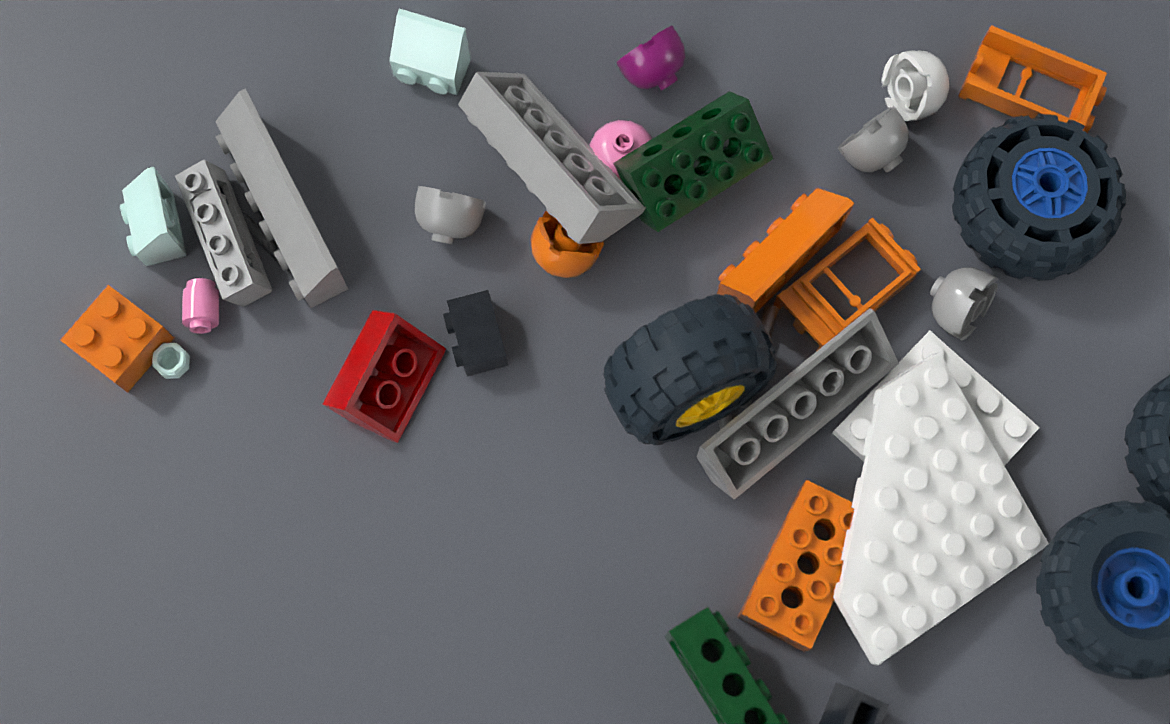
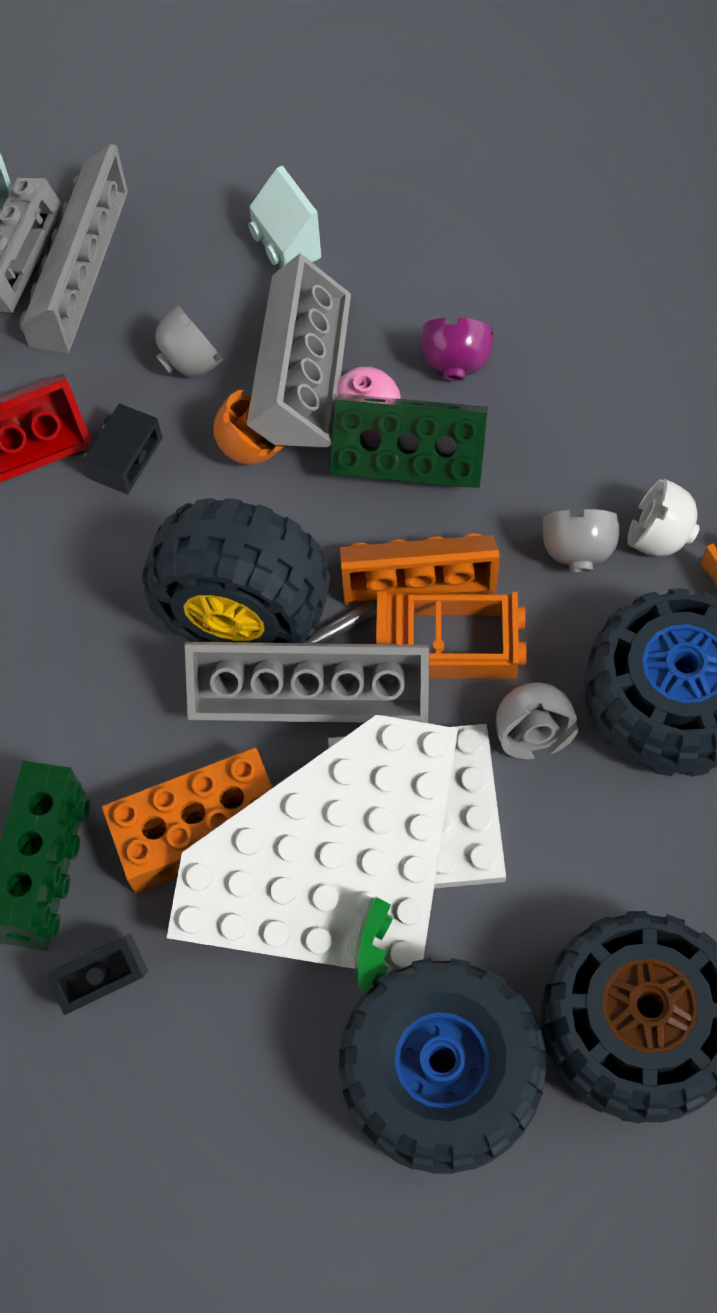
camera: 45 degrees right, 10 degrees down
(1021, 563) = (369, 958): none -> green slope

